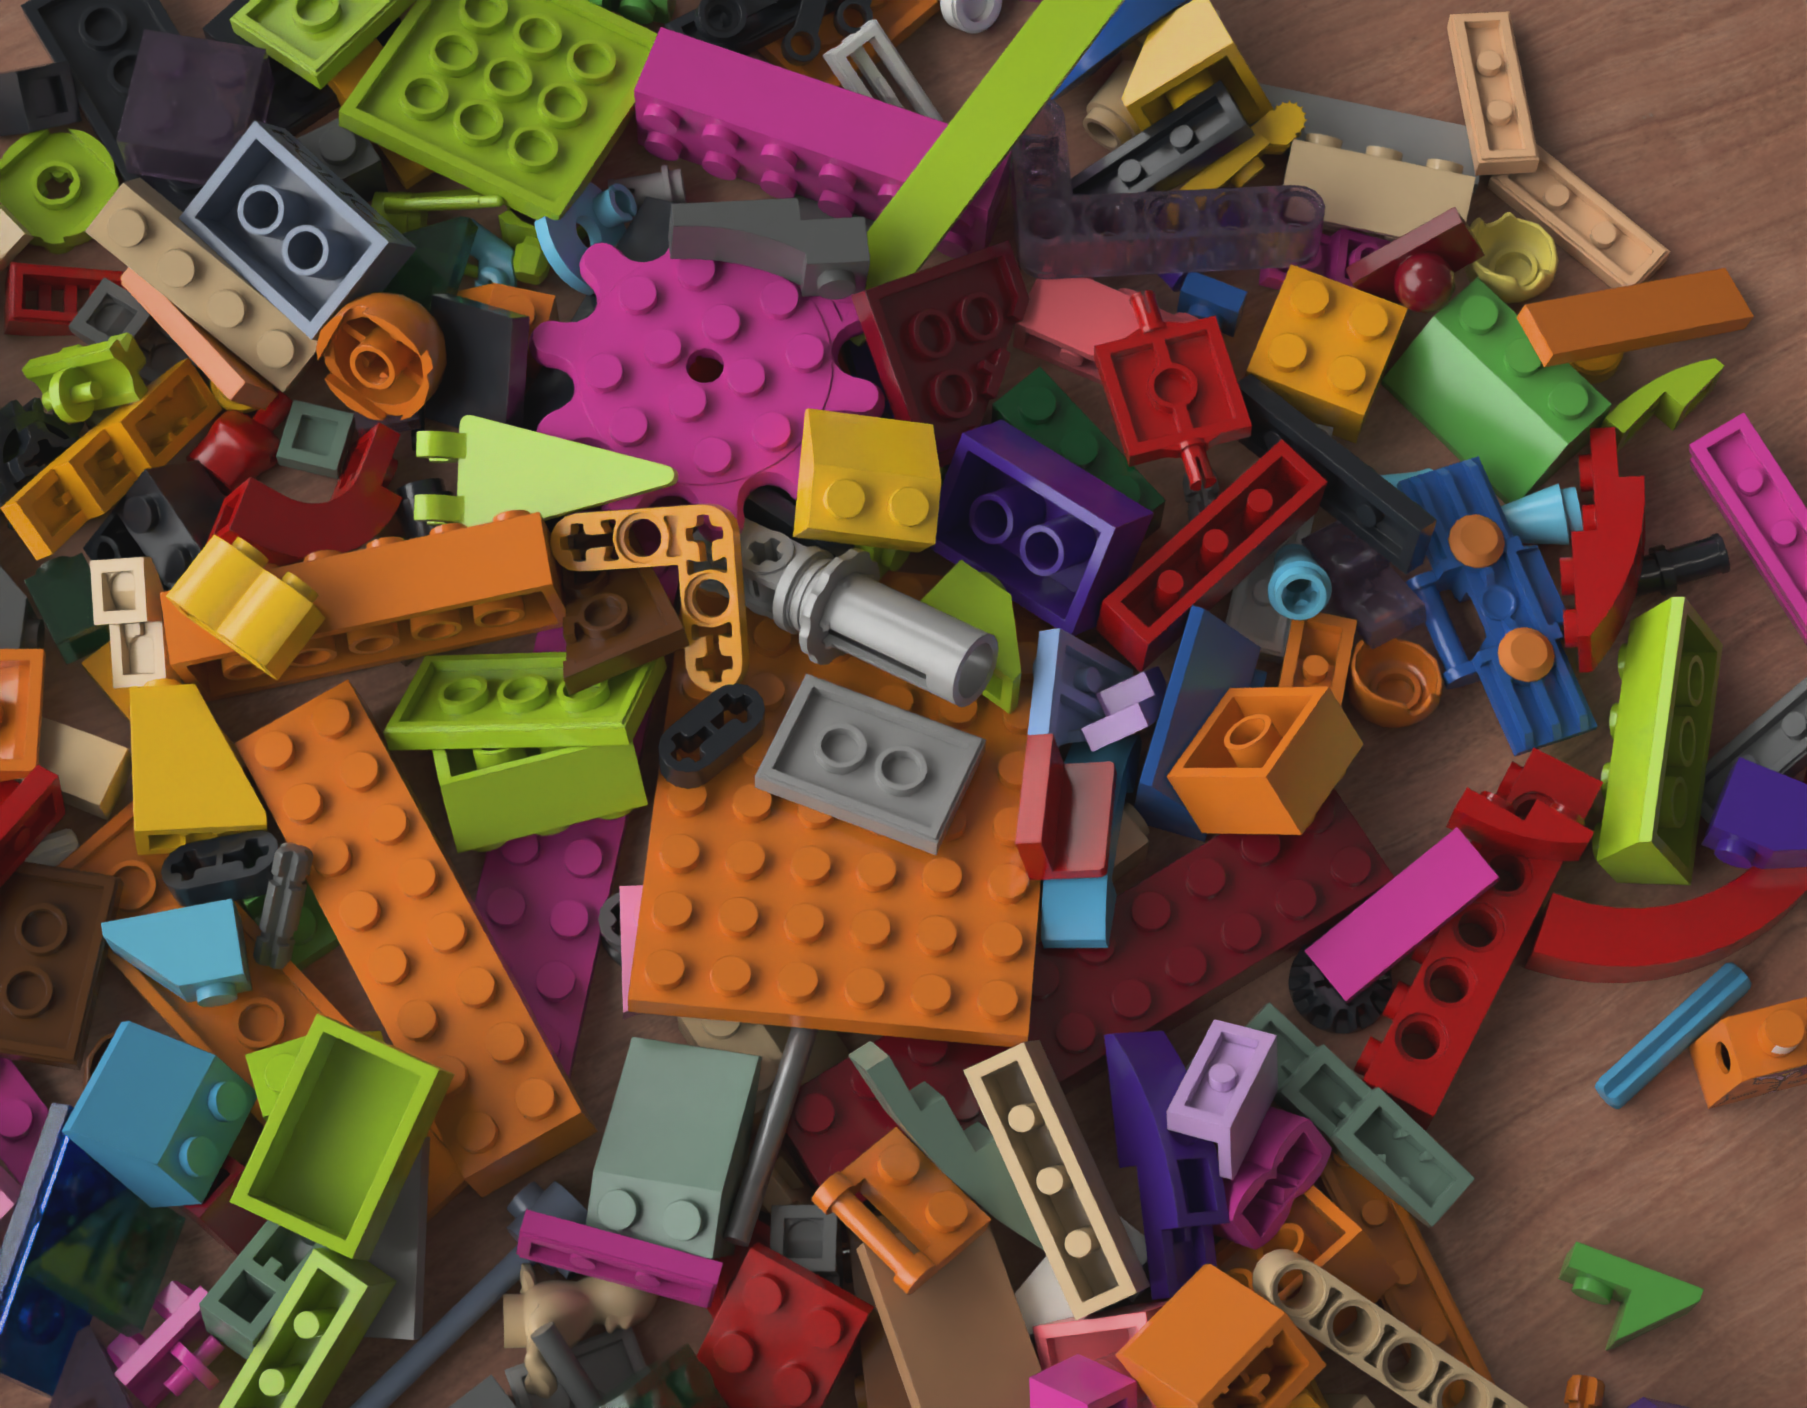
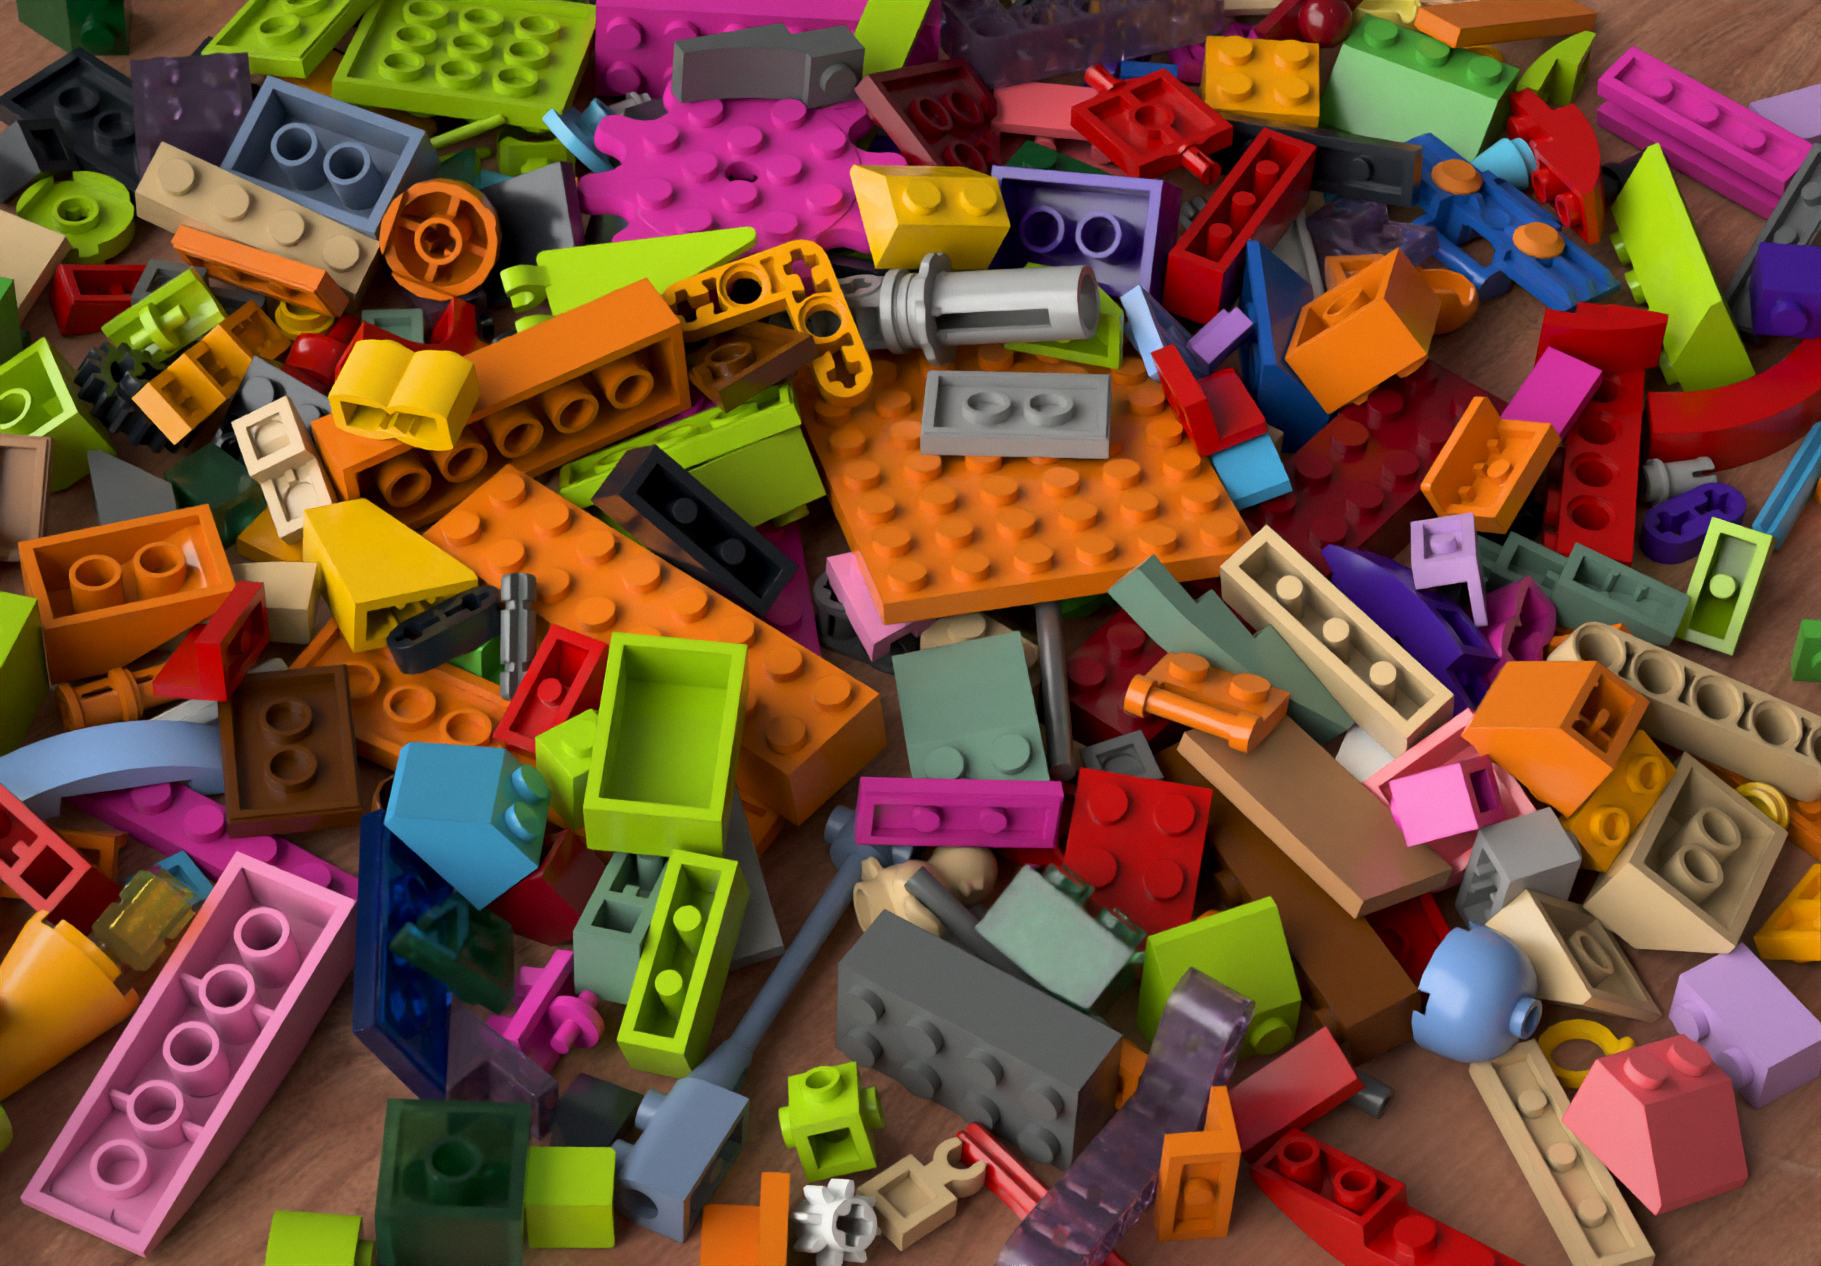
camera: 20 degrees left, 25 degrees down
(187, 950) = (432, 697): medium azure slope -> none
(295, 985) = (557, 686): none -> red slope
(477, 852) = (693, 529): none -> black brick
(706, 729) = (865, 425): black beam -> none
(1298, 584) = (1324, 230): medium azure cone -> none
(1327, 967) = (1489, 466): none -> orange bracket
(1532, 1153) = (1725, 585): none -> lime slope
(1536, 1039) = (1687, 516): none -> dark purple beam
(1544, 995) = (1667, 480): none -> light grey pin

